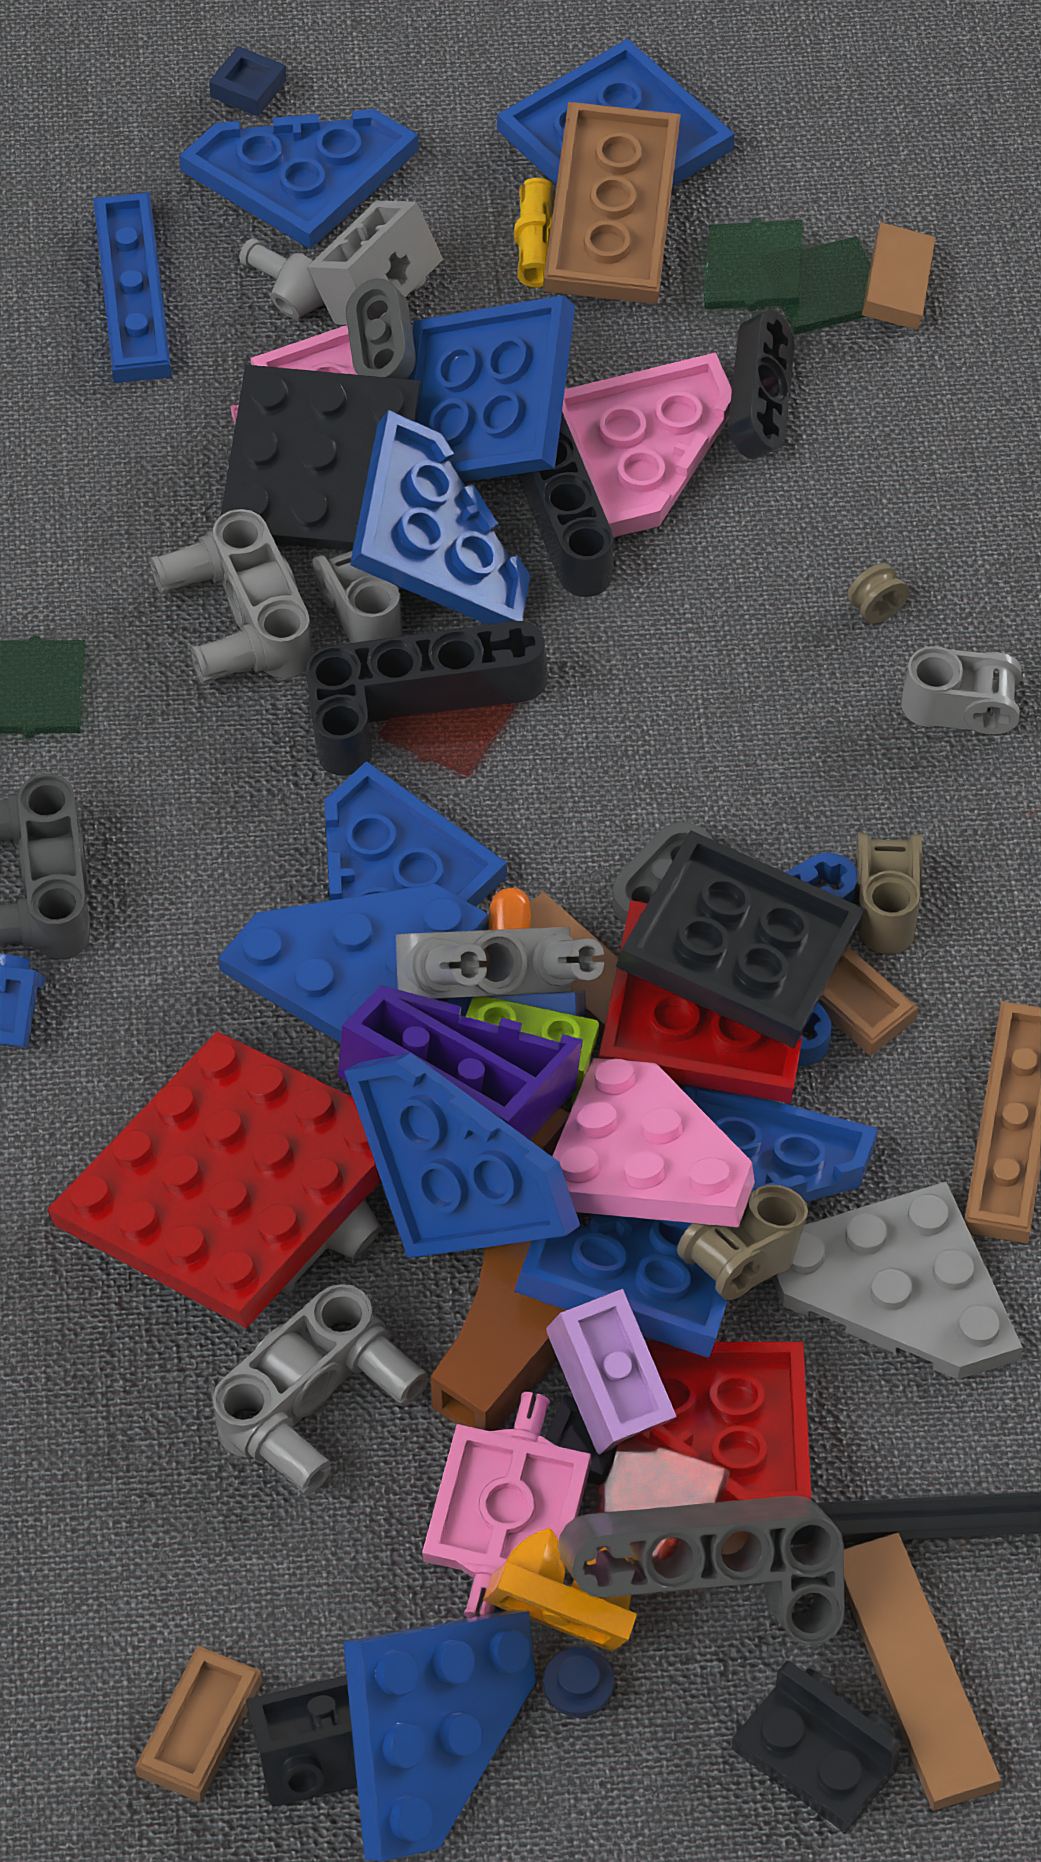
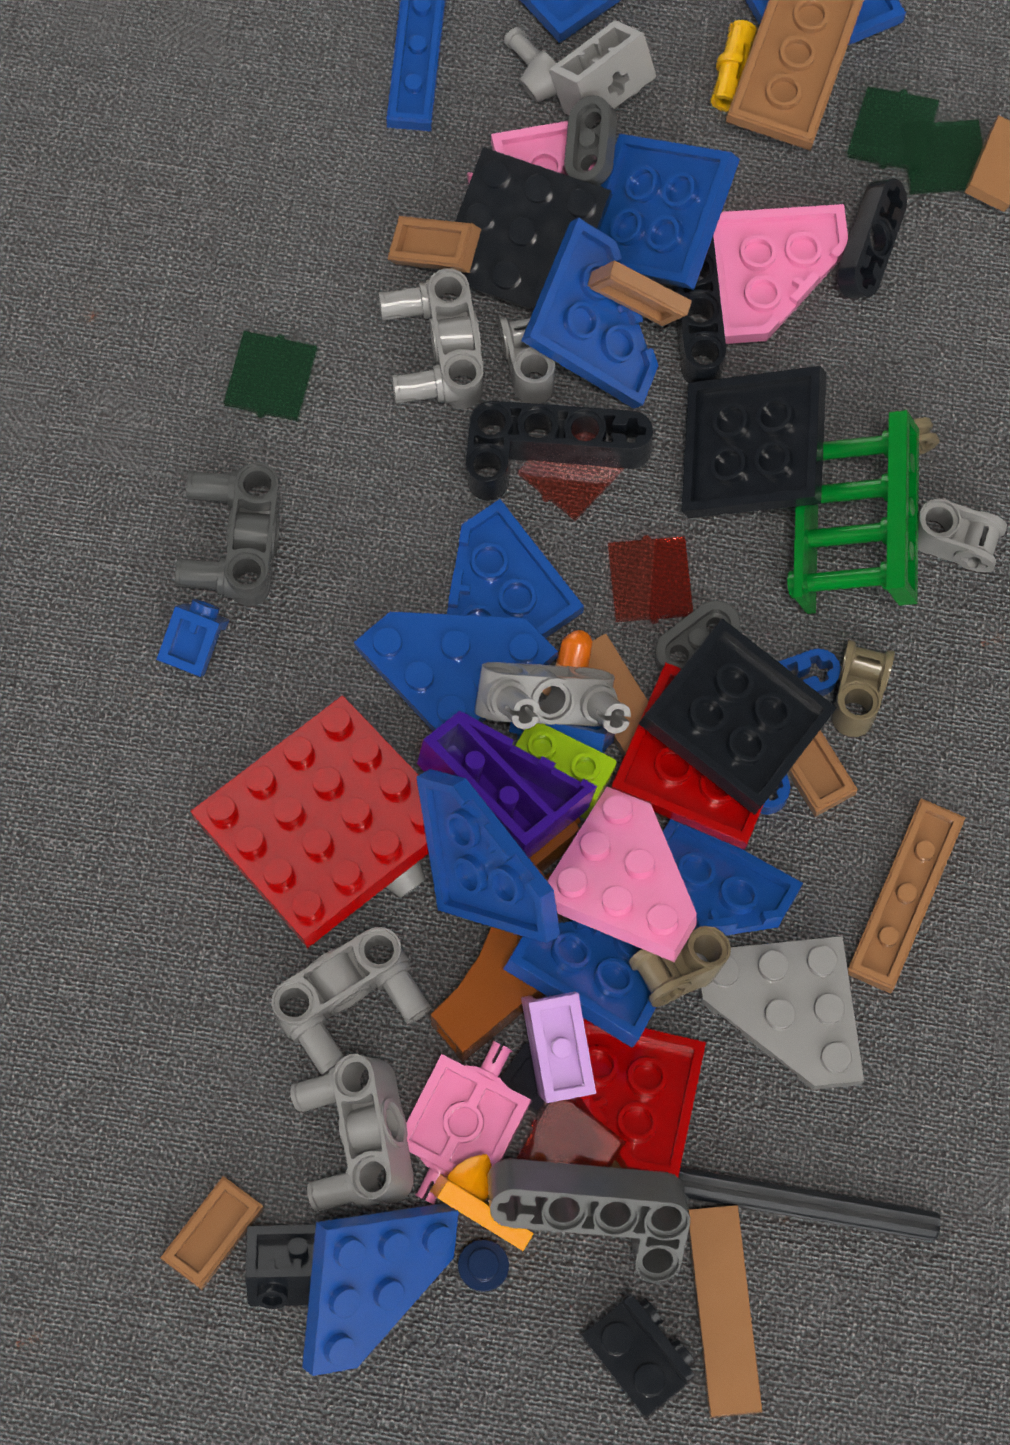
camera: 10 degrees right, 15 degrees up
(207, 489) = (434, 243): none -> medium nougat tile
(385, 1535) = (370, 1131): none -> light grey piece
(486, 484) = (639, 293): none -> medium nougat tile
(583, 822) = (650, 579): none -> clear red piece
(676, 631) = (754, 442): none -> black plate
(884, 689) = (896, 531): none -> green fence

